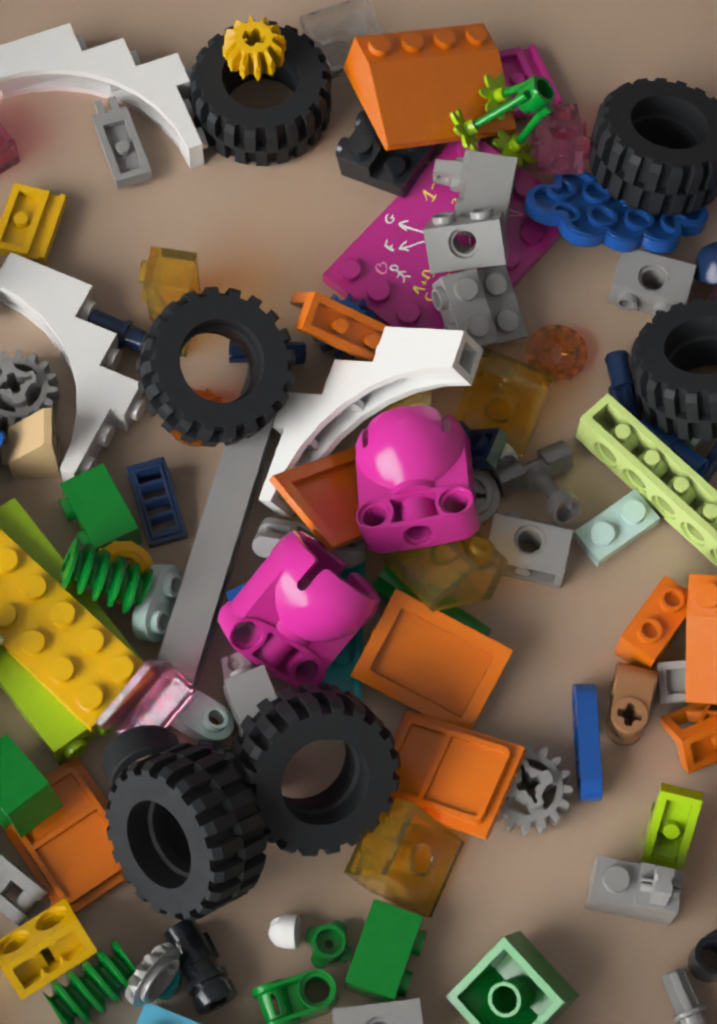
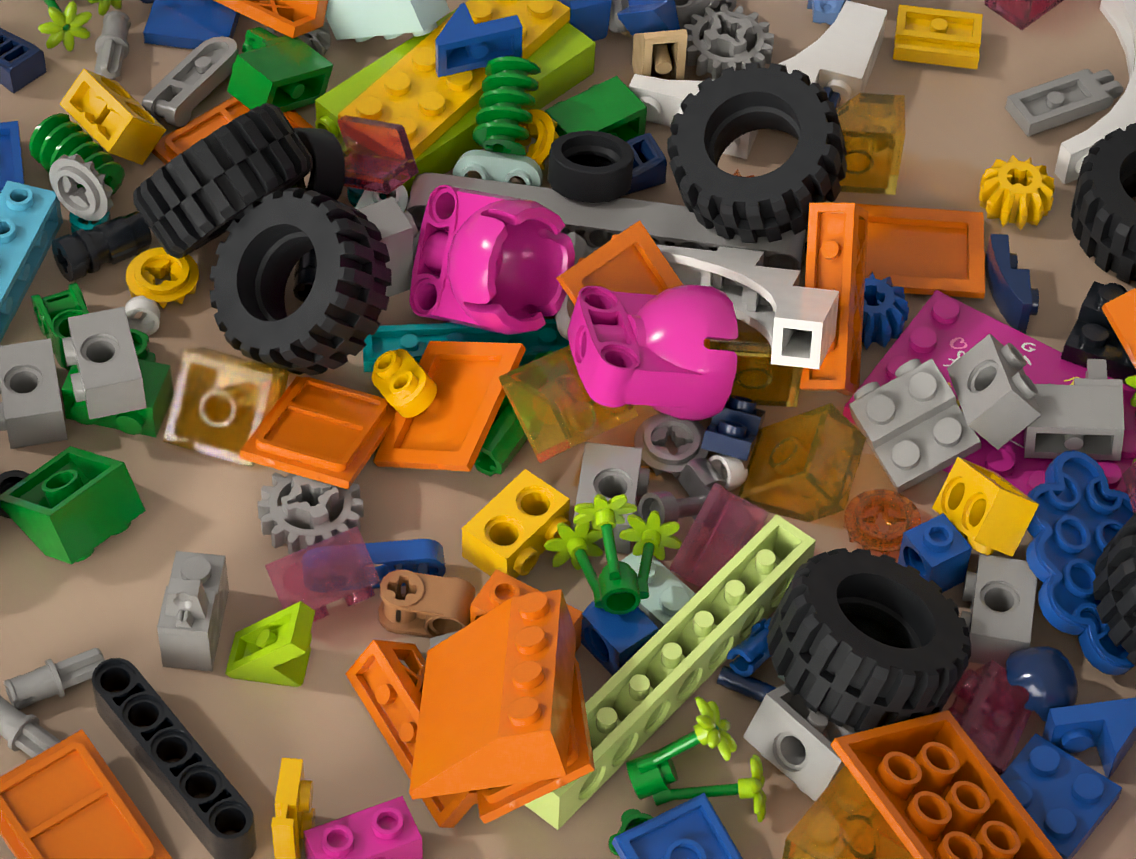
camera: 85 degrees right, 15 degrees down
(36, 597) = (470, 46): none -> blue slope
(162, 494) = (610, 170): none -> black tyre
(224, 195) = (1016, 192): none -> yellow gear
(245, 931) = (156, 264): none -> yellow gear
(276, 266) = (927, 249): none -> orange piece
(337, 219) = (1010, 285): none -> dark blue slope
(396, 700) = (403, 382): none -> yellow plate
(405, 933) = (106, 363): none -> light grey brick
(546, 630) = (511, 522): none -> yellow brick
(567, 264) = (985, 508): none -> yellow brick
(586, 469) = (716, 535): none -> clear pink panel
(601, 319) = (936, 552): none -> blue brick
(618, 775) = (326, 573): none -> clear pink bracket
(648, 540) = (618, 587): none -> plant
(664, 554) = (614, 636): none -> blue brick

